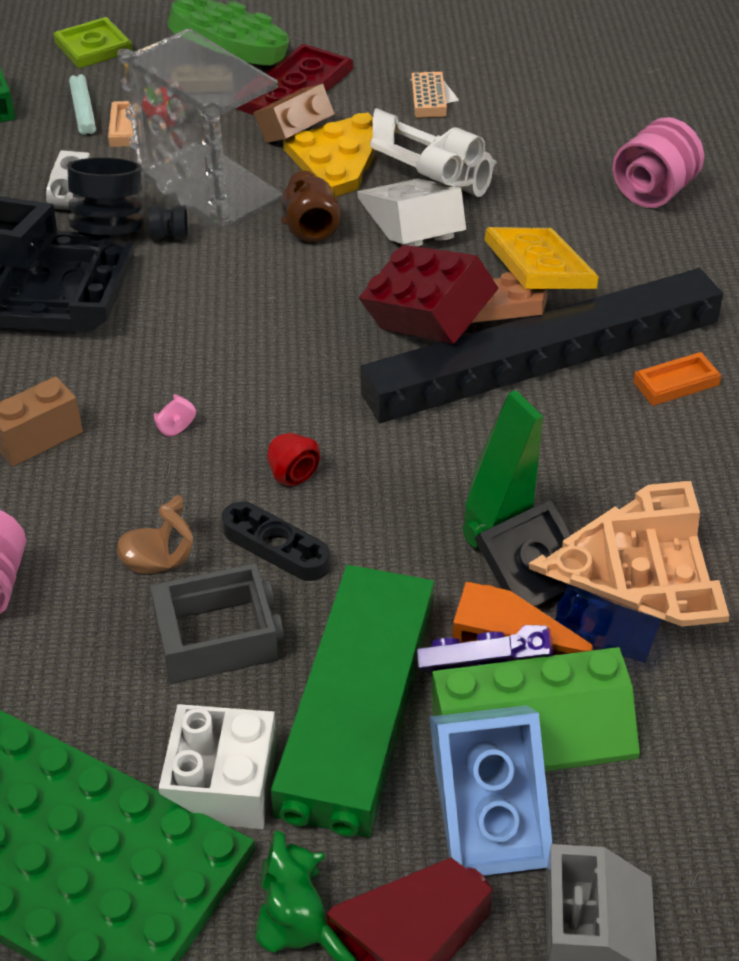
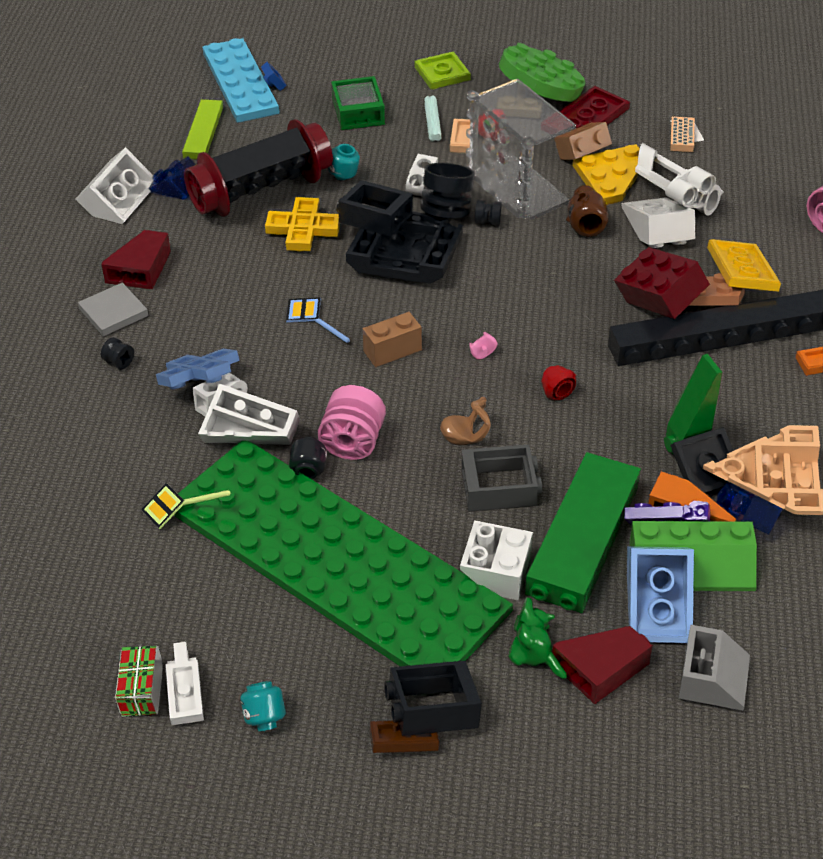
camera: 10 degrees right, 0 degrees up
(283, 556) = (535, 422): black beam -> none

